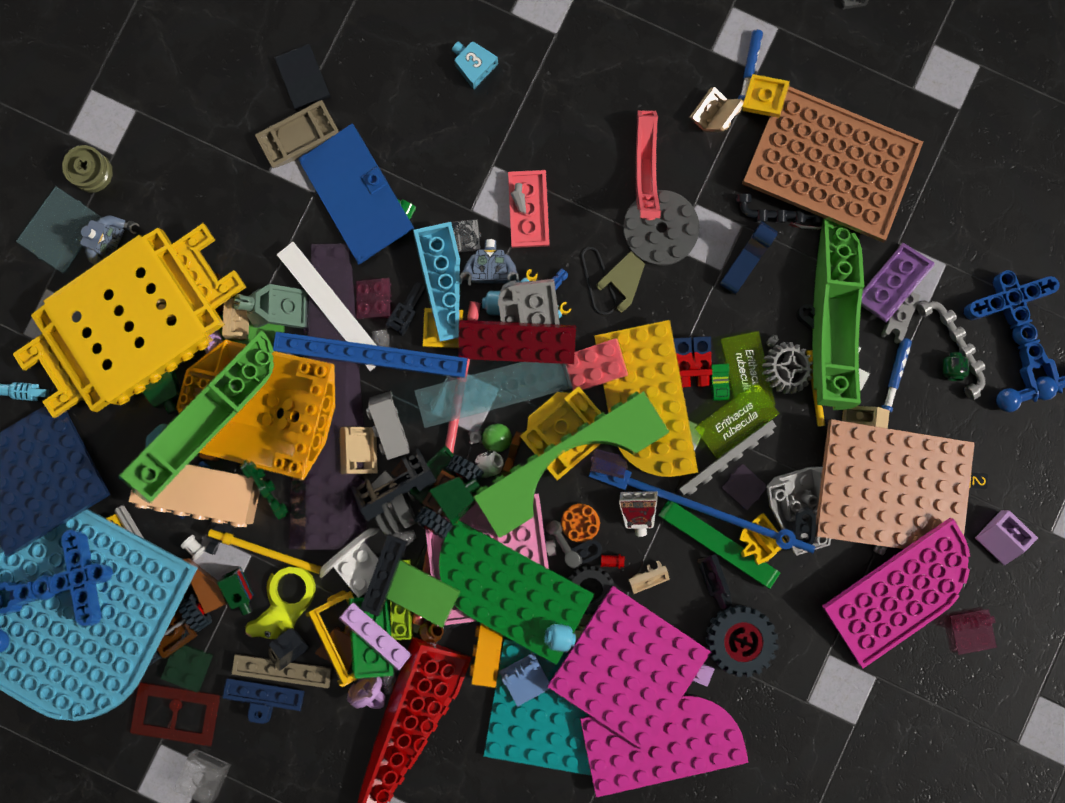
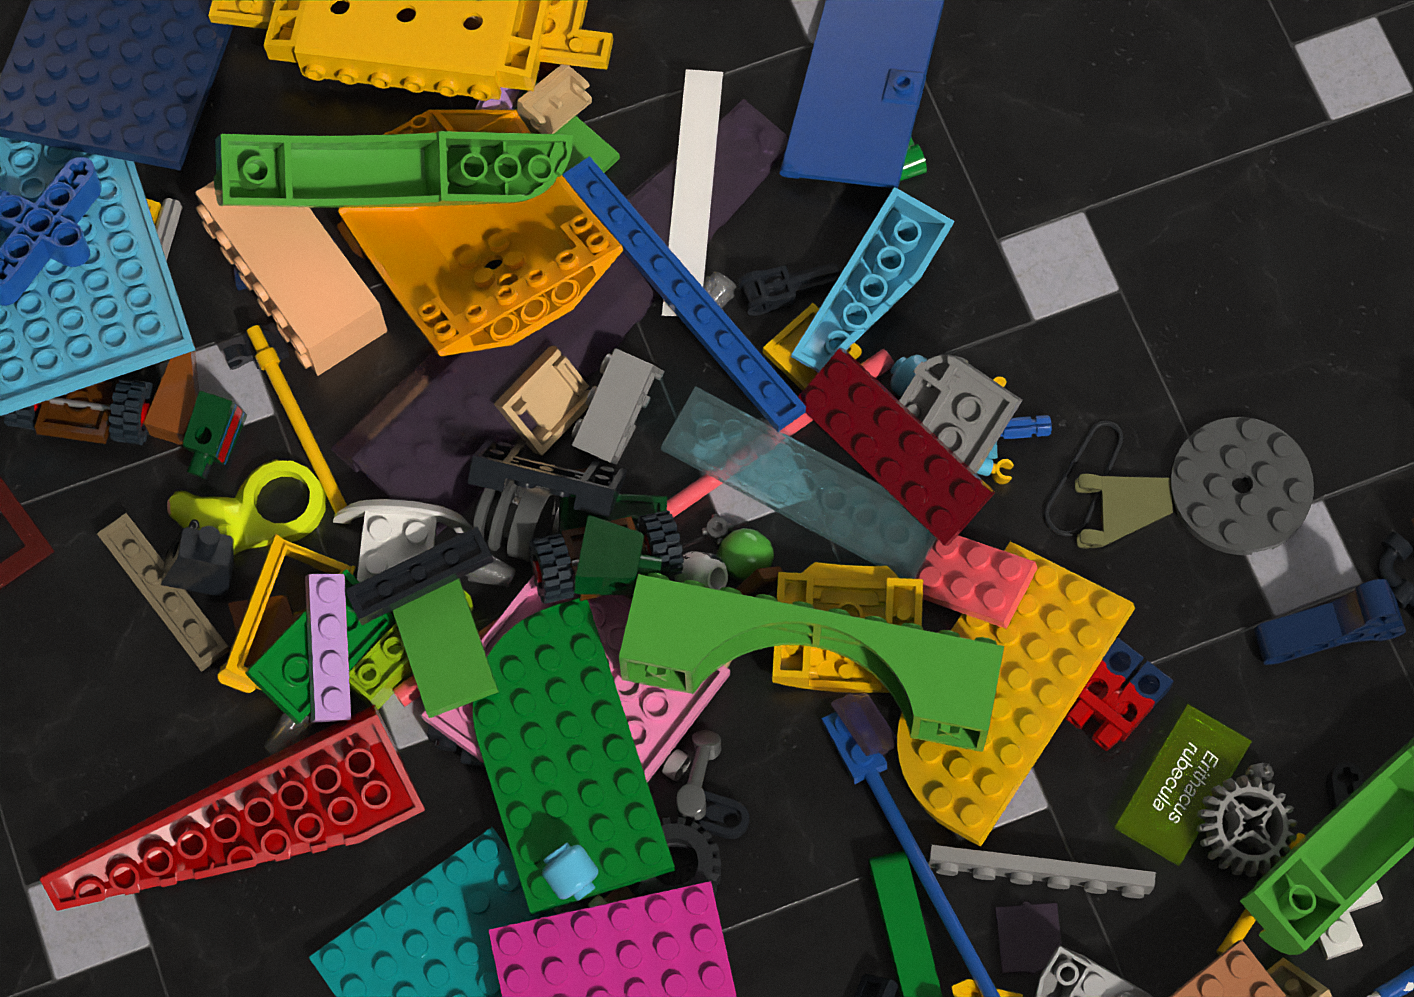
camera: 45 degrees right, 15 degrees down
(164, 392) = (374, 109): dark green torso -> none
(187, 667) = (51, 476): clear green plate -> none
(193, 547) = (213, 332): white bush -> none
(262, 698) = (103, 603): dark blue plate -> none
(265, 488) = (384, 288): dark green plant -> none
(275, 306) = (621, 128): sand green plate -> none
(365, 692) = (243, 720): lavender tile -> none
(373, 298) = (759, 234): clear pink hinge -> none
(430, 632) = (405, 720): reddish brown rock -> none
(467, 235) = (958, 265): piece -> none
(474, 62) = (1182, 60): medium azure torso -> none
(487, 656) = (448, 822): light orange wedge -> none
(489, 266) = (950, 323): sand blue torso -> none
(519, 198) = (1077, 273): light grey bar -> none
(525, 679) = (467, 902): medium blue hinge -> none
(533, 227) = (1077, 302): coral plate -> none
(580, 522) = (750, 770): orange tile -> none
(612, 561) = (744, 862): red pin -> none
(638, 510) = (846, 823): torso -> none
(646, 165) = (1300, 380): coral arch -> none
(646, 580) = (771, 933): tan plate -> none
(720, 382) = (1130, 757): green leg -> none
(736, 420) = (1105, 830): clear neon green tile -> none

